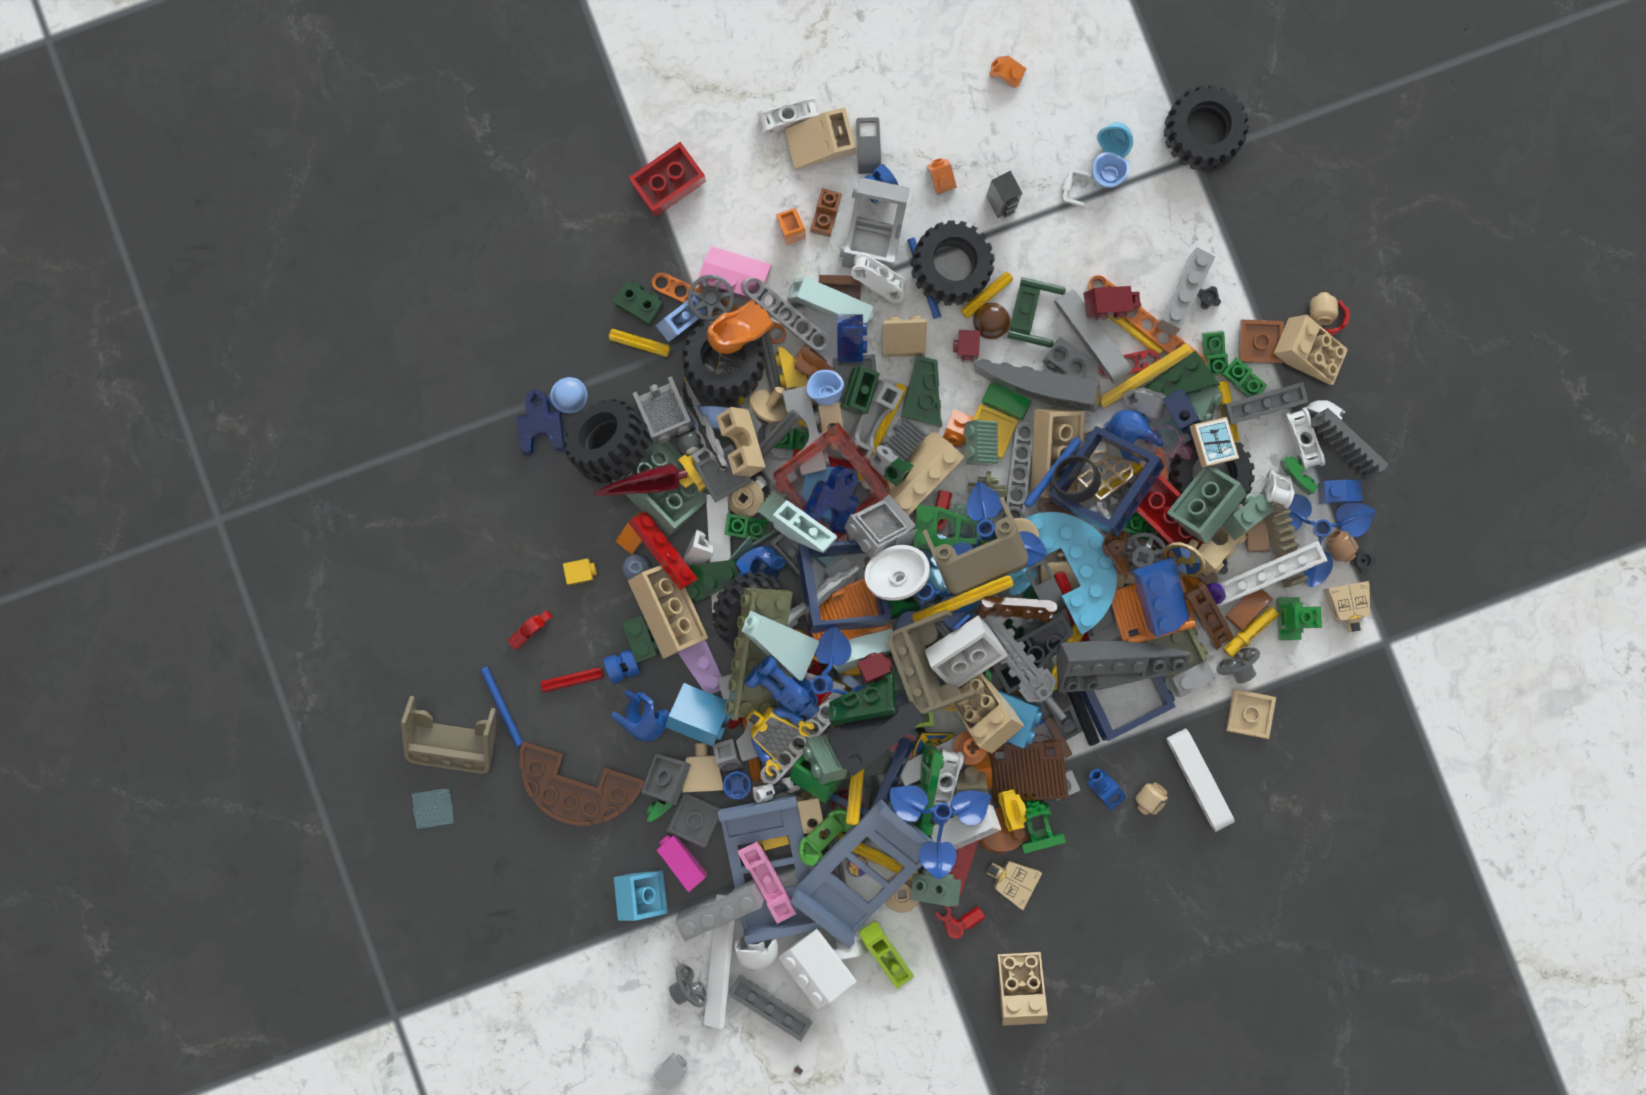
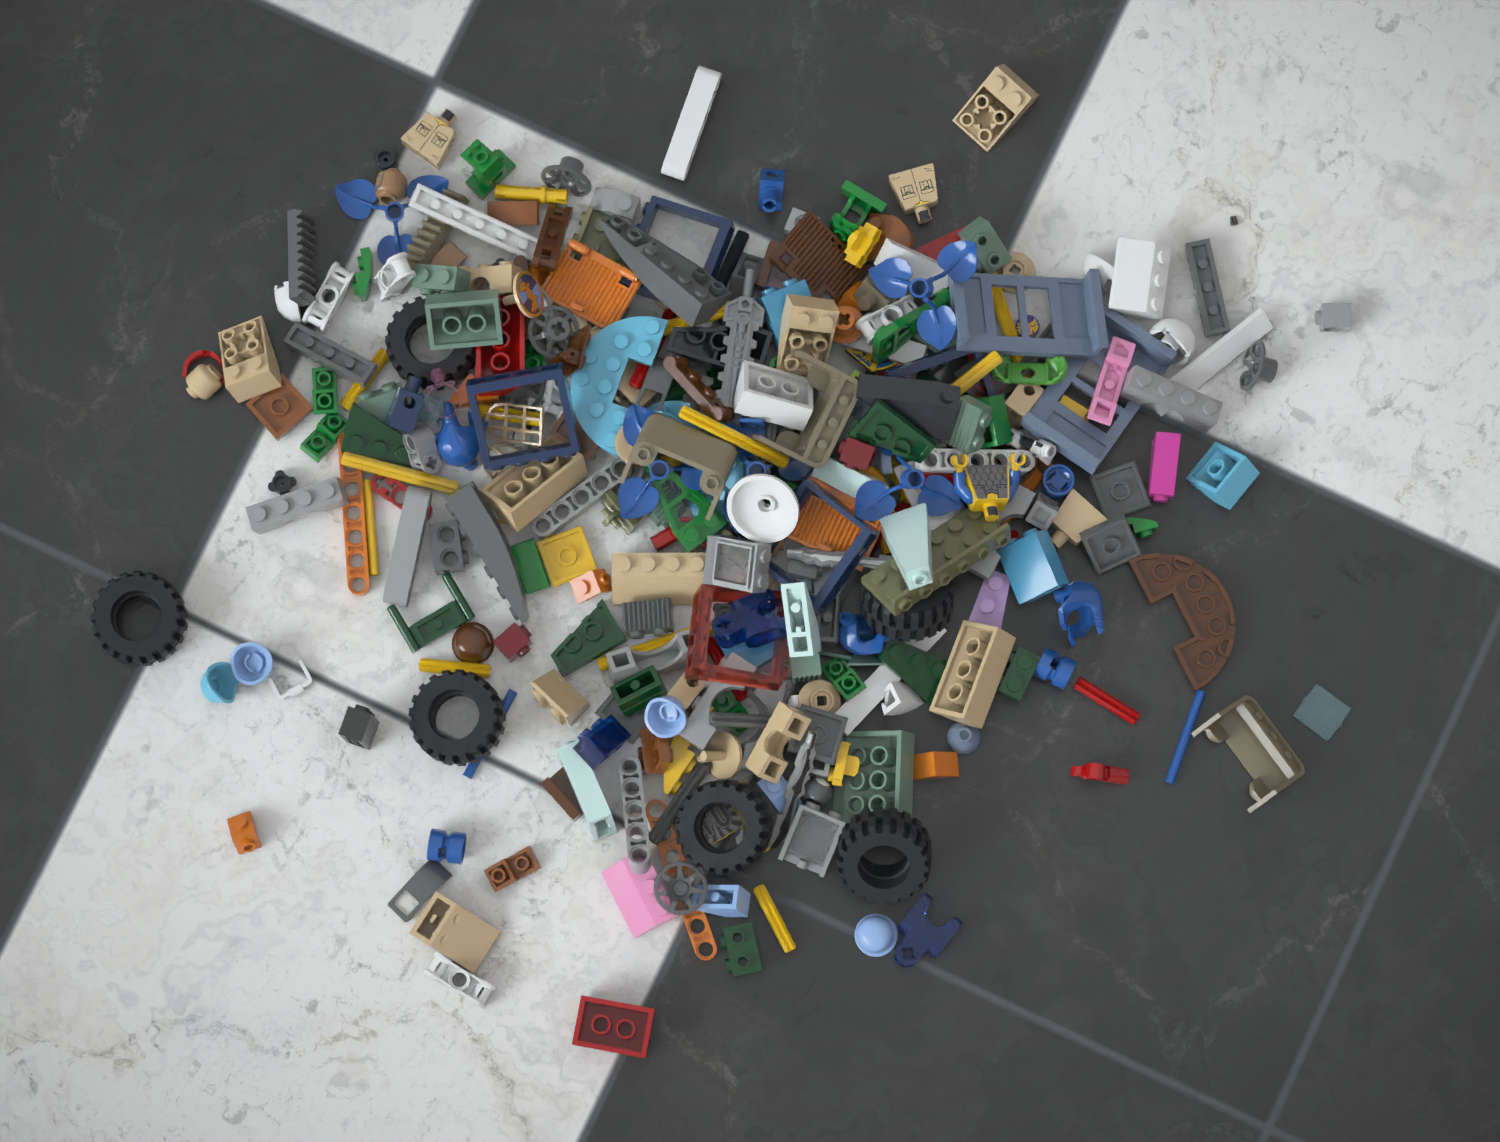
camera: 130 degrees left, 5 degrees down
(579, 571) = (1012, 779): yellow brick -> none
(648, 481) = (883, 789): dark red piece -> none
(663, 550) = (928, 724): red plate -> none
(738, 328) = (685, 833): orange hair -> none
(790, 695) = (945, 499): blue piece -> none
(791, 226) = (552, 887): orange slope -> none
(879, 277) = (528, 766): white piece -> none
(883, 192) = (454, 830): light grey window -> none
(886, 954) = (1074, 237): lime slope -> none
(890, 465) = (678, 605): leg -> none
(906, 539) = (728, 533): white sticker -> none
(942, 175) = (387, 802): orange bracket -> none
(968, 921) = (999, 203): red bar -> none
(981, 442) = (586, 550): sand green brick -> none
(1049, 475) = (557, 467): blue bar -> none
(1083, 495) = (551, 418): black tyre -> none
(1111, 301) = (366, 556): dark red brick -> none
(1151, 799) = (744, 146): tan head -> none
(1161, 596) = (576, 284): blue slope -> none
(1214, 442) = (407, 359): tile -> none
(1217, 592) = (526, 248): dark purple tile -> none
(1250, 714) = (598, 133): tan tile -> none
(1340, 491) = (346, 229): blue slope -> none

